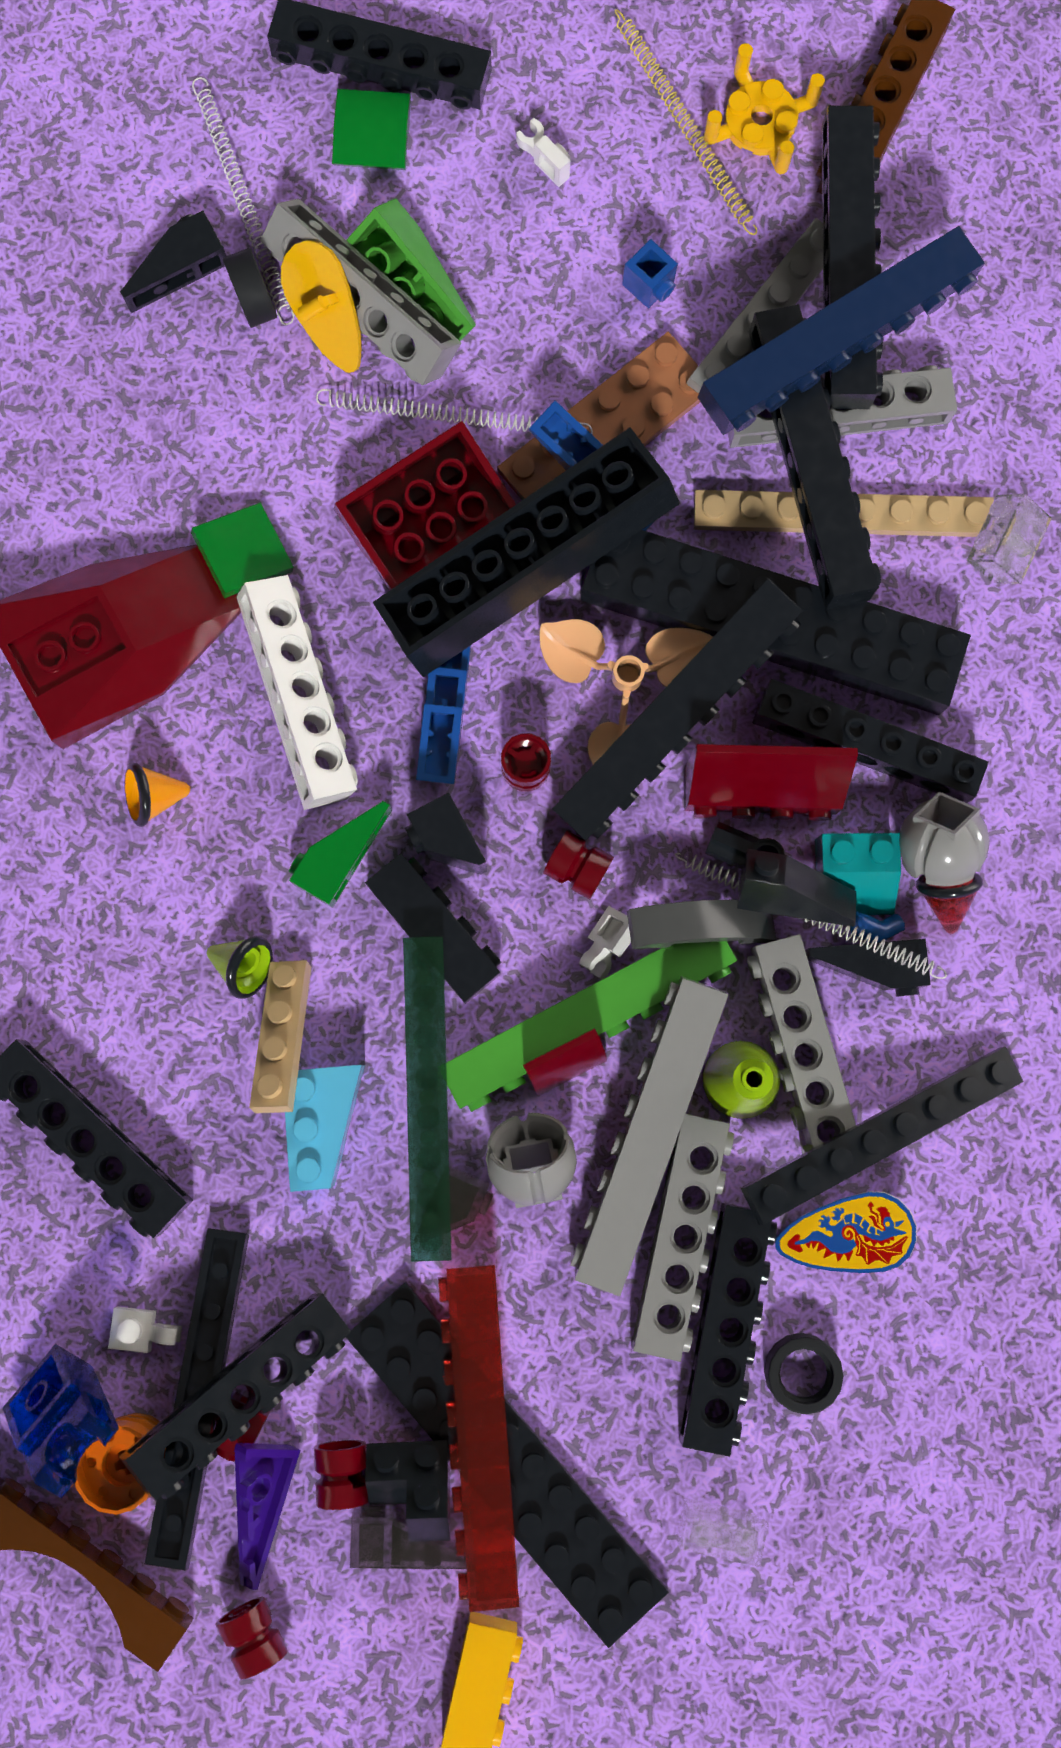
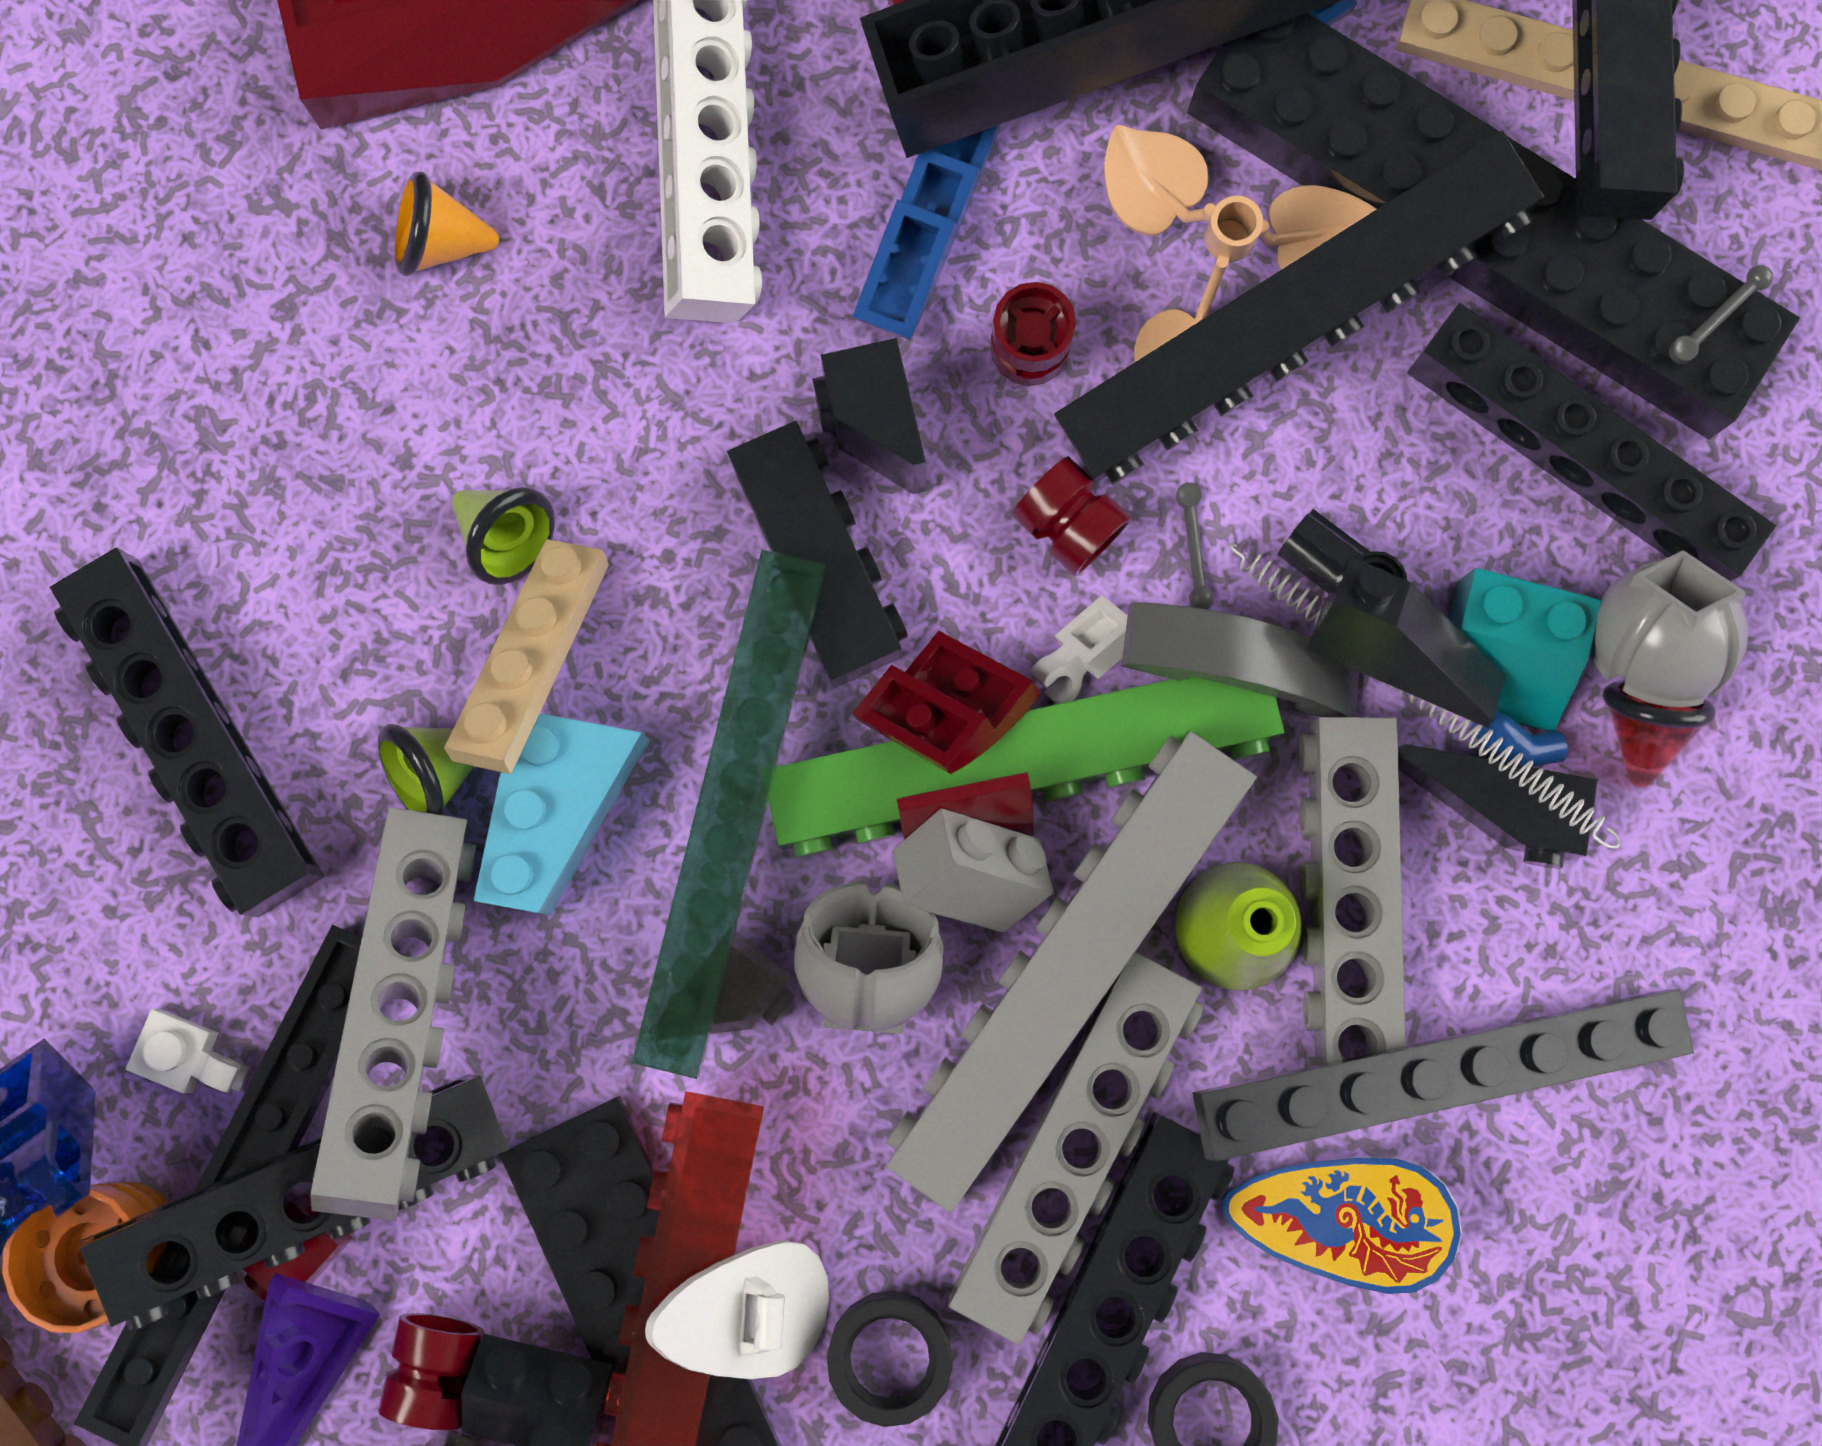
camera: 20 degrees right, 0 degrees up
(234, 1120) = (420, 766): none -> lime hat
(266, 1375) = (344, 1176): none -> light grey brick
(334, 859) = (692, 404): green slope -> none
(517, 1388) = (745, 1313): none -> white shield
(536, 997) = (947, 703): none -> dark red slope
(578, 1093) = (972, 871): none -> light grey brick
(629, 1412) = (859, 1400): none -> black tyre
(643, 832) = (1188, 497): none -> dark grey hinge
(768, 780) = (1414, 457): dark red slope -> none
(909, 672) = (1686, 347): none -> dark grey hinge

